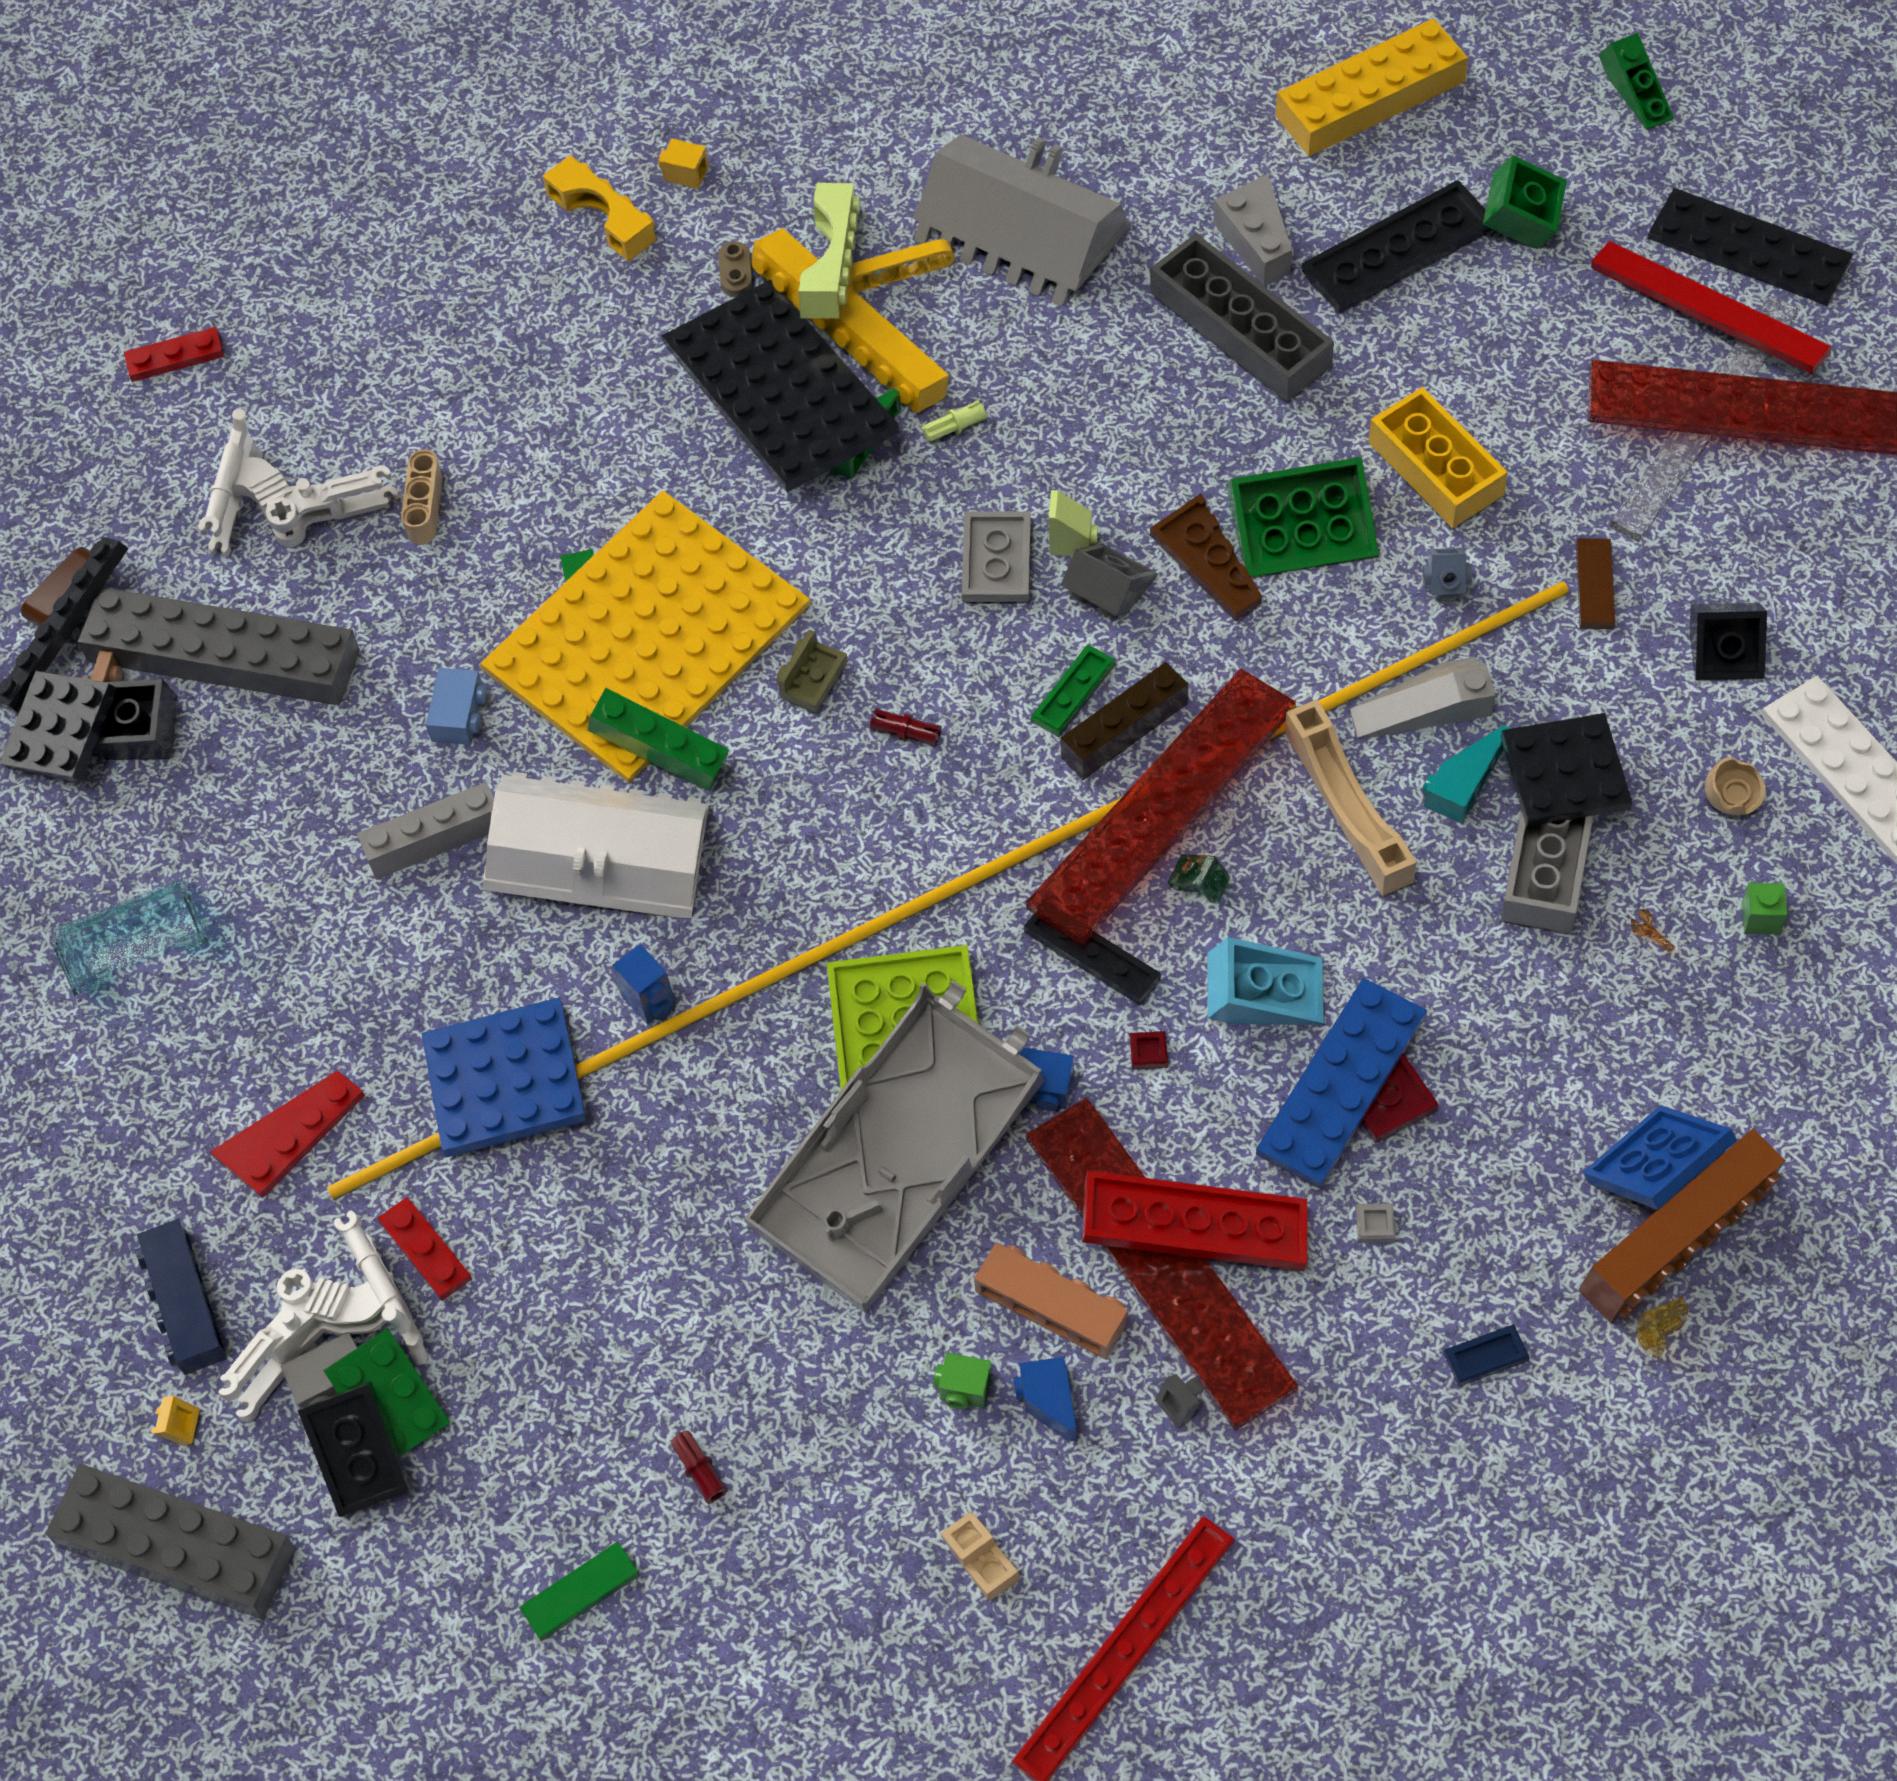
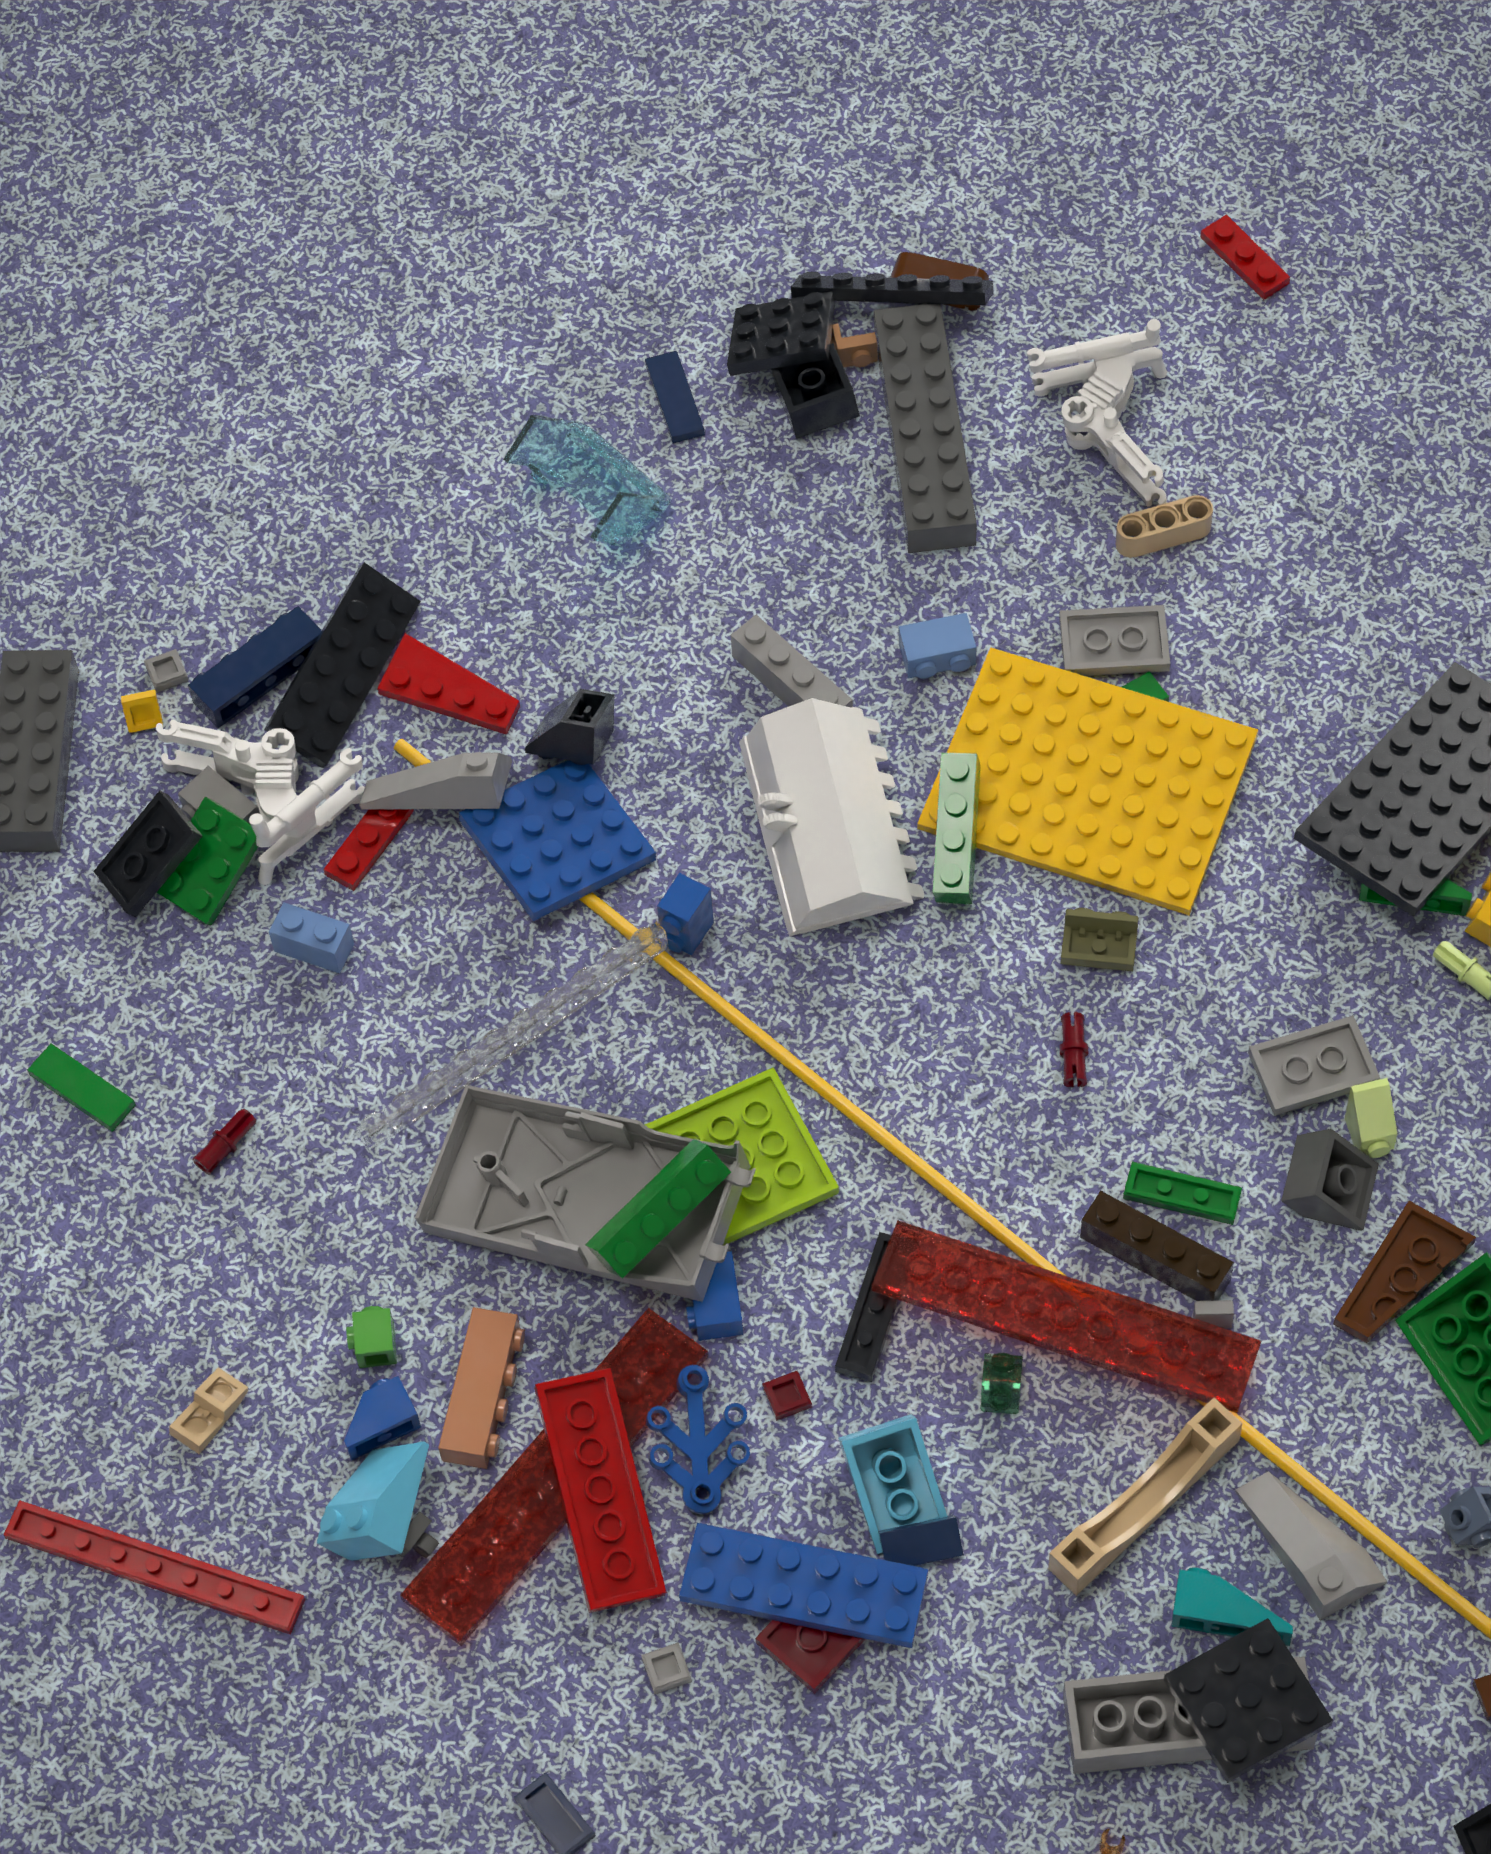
camera: 70 degrees right, 0 degrees up
(67, 844) = (674, 397): none -> dark blue tile
(136, 1389) = (166, 670): none -> light grey tile
(219, 1212) = (344, 664): none -> black plate
(398, 1024) = (575, 728): none -> black slope
(405, 1154) = (450, 783): none -> light grey wedge
(514, 1324) = (311, 937): none -> medium blue brick
(516, 571) = (1115, 640): none -> light grey plate
(703, 1185) = (504, 1042): none -> clear plate
(953, 1078) = (658, 1208): none -> green brick
(1138, 1416) = (375, 1504): none -> medium azure slope
(1175, 1130) = (697, 1445): none -> blue plant
(1198, 697) = (1215, 1312): none -> light grey tile
(1328, 982) = (922, 1542): none -> dark blue tile

